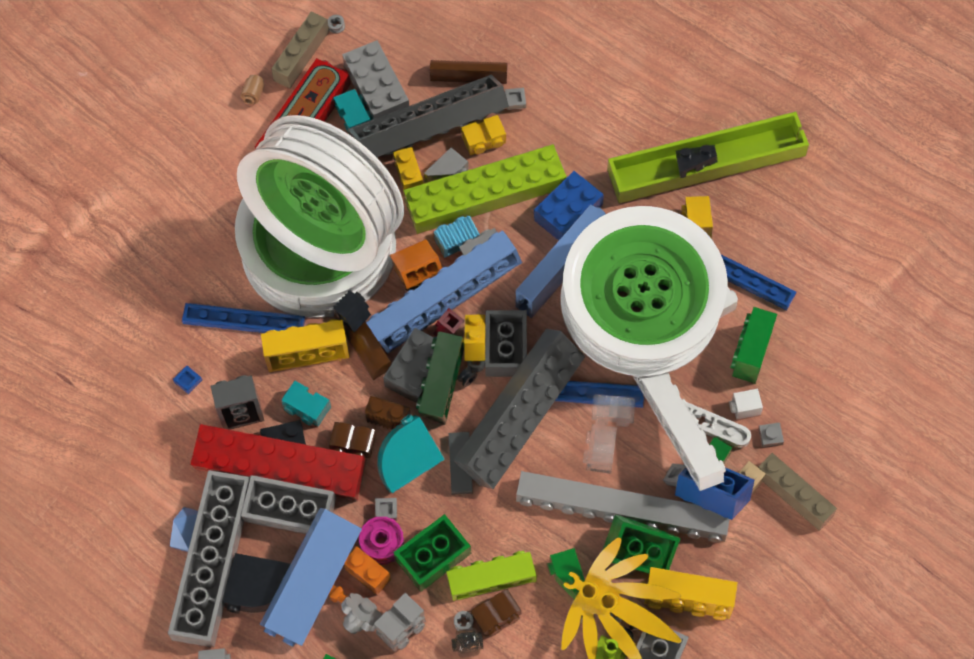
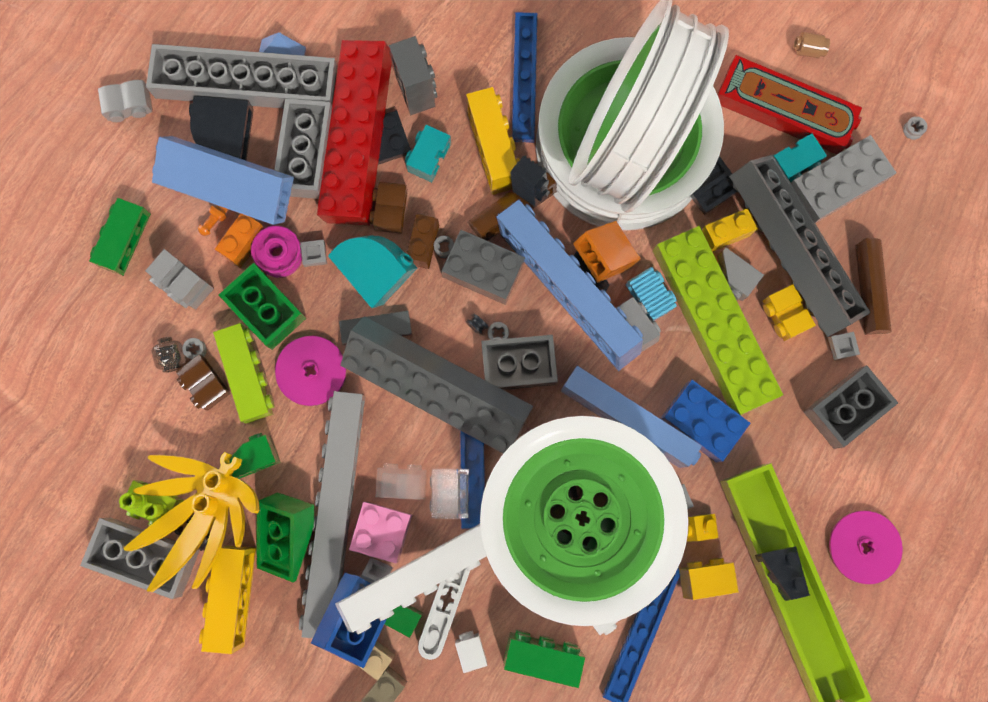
camera: 80 degrees right, 15 degrees up
(187, 379) = (449, 29): blue tile -> none
(300, 50) = (872, 90): dark tan brick -> none
(359, 613) = (190, 239): light grey plant -> none
(394, 393) = (436, 246): none -> light grey bush
(441, 377) = (462, 292): dark green slope -> none
(448, 323) = (534, 295): dark red brick -> none
(474, 337) = (521, 325): yellow brick -> none
(495, 536) = (293, 377): none -> dark pink piece
(567, 99) = (850, 407): none -> dark grey brick
(641, 467) = (380, 532): none -> bright pink brick
(682, 117) = (848, 553): none -> dark pink piece
(771, 435) = (437, 683): light grey plate -> none

